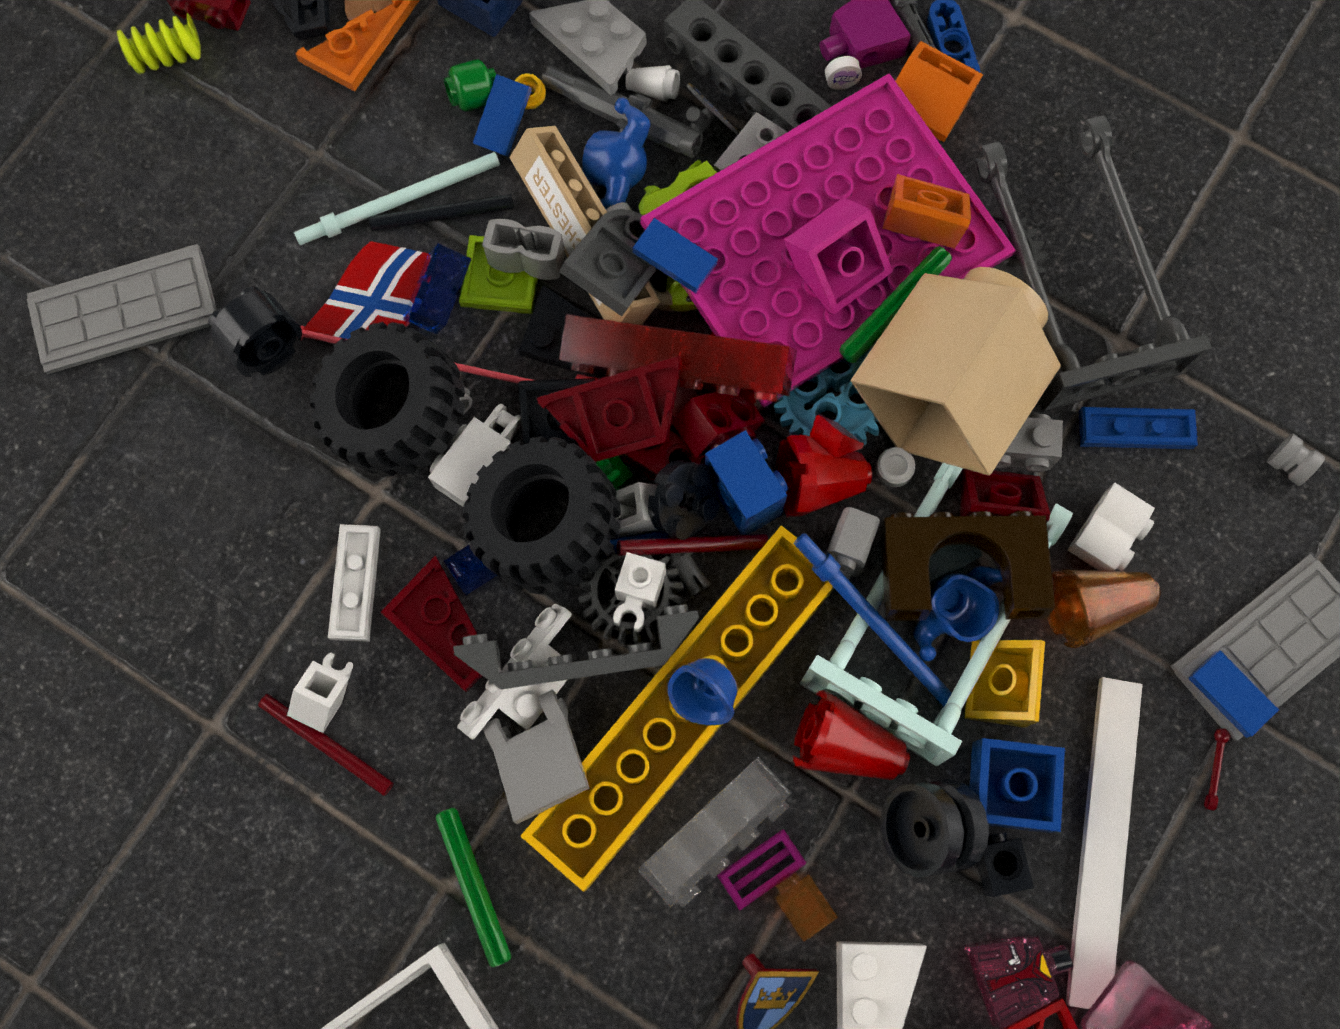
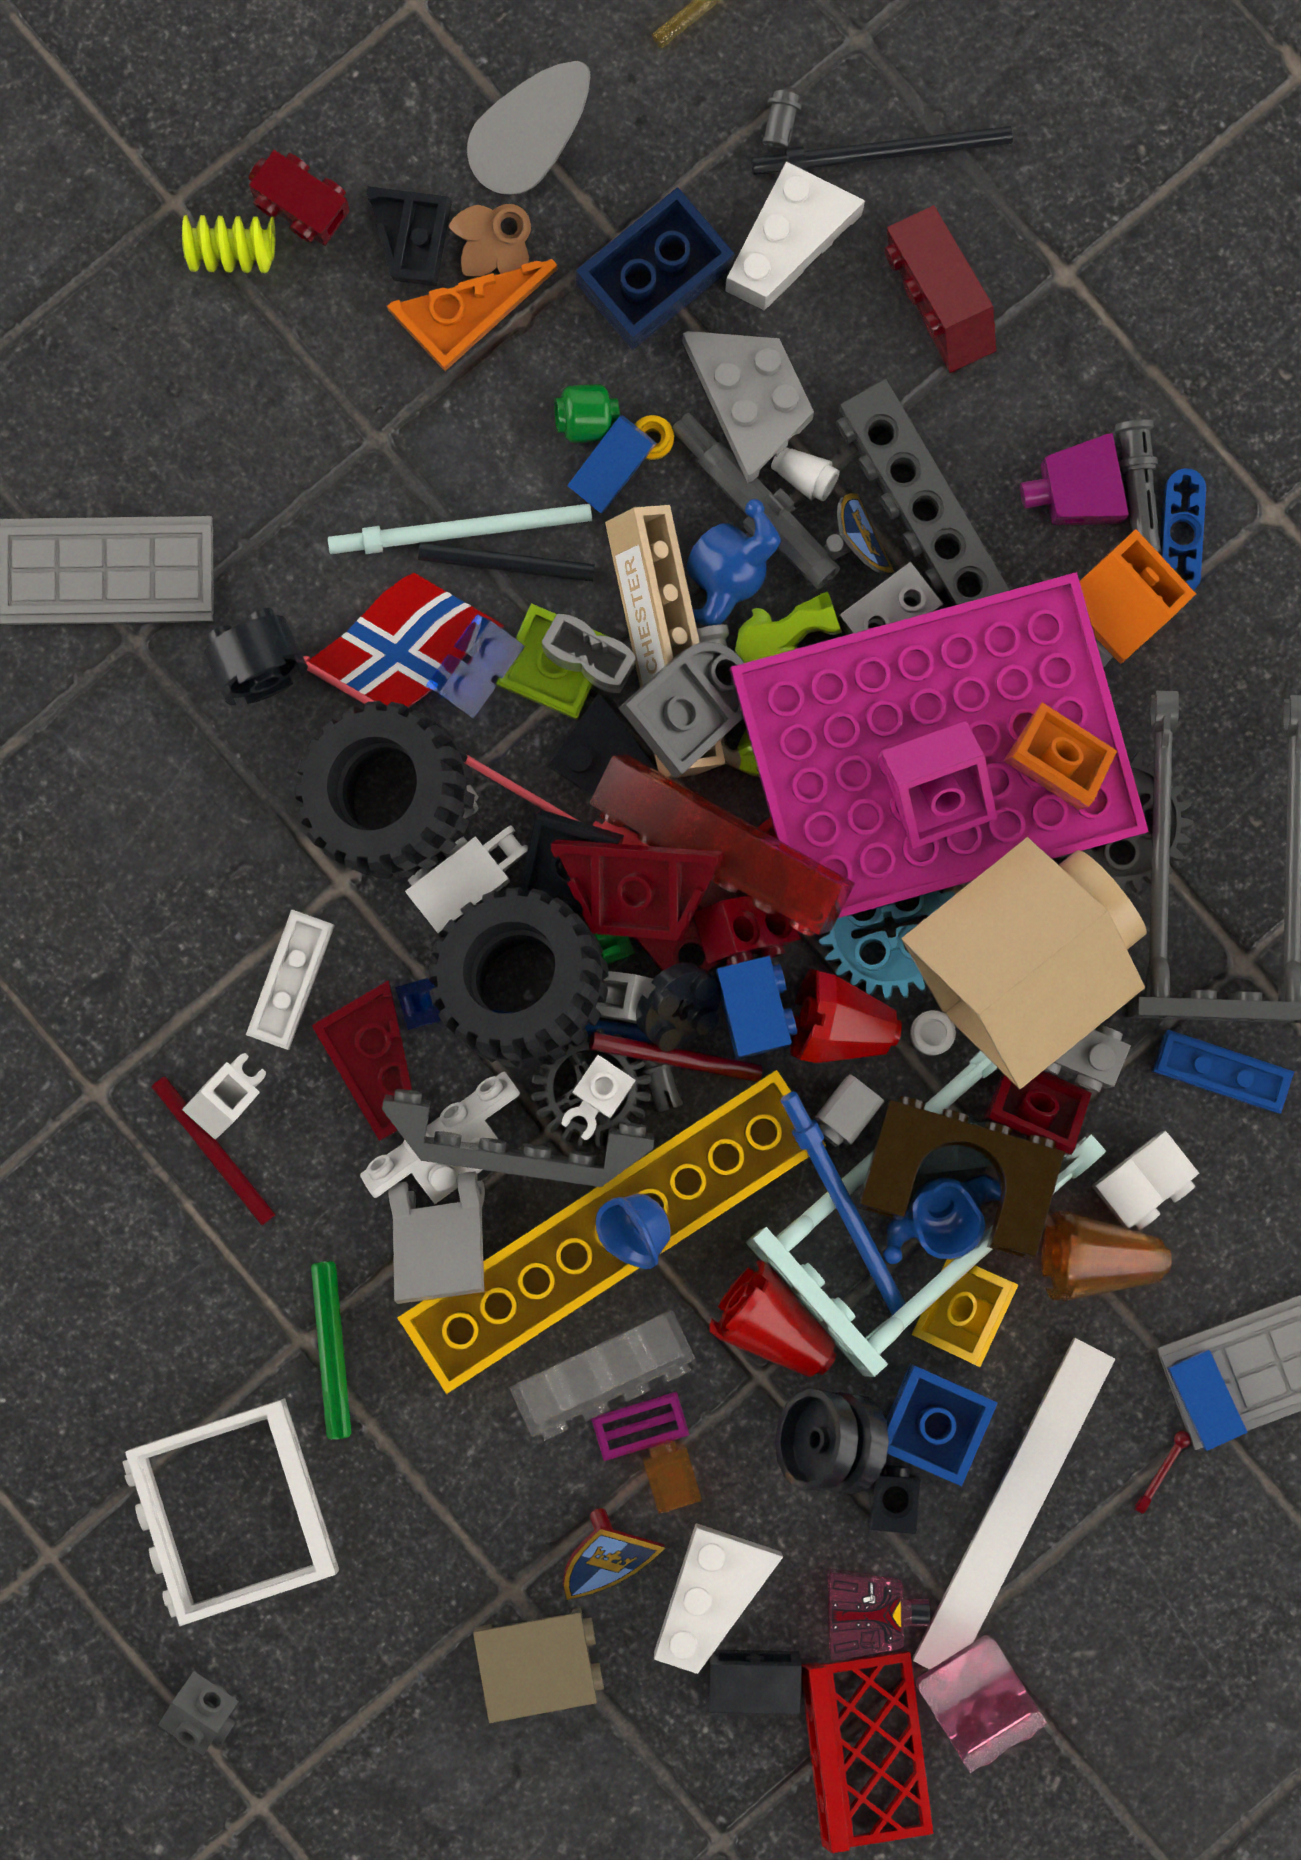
camera: 10 degrees right, 10 degrees up
(675, 255) = (755, 727): blue tile -> none
(834, 437) = (869, 988): red slope -> none
(843, 72) = (1035, 530): white tile -> none
(878, 321) = (975, 864): green axle -> none

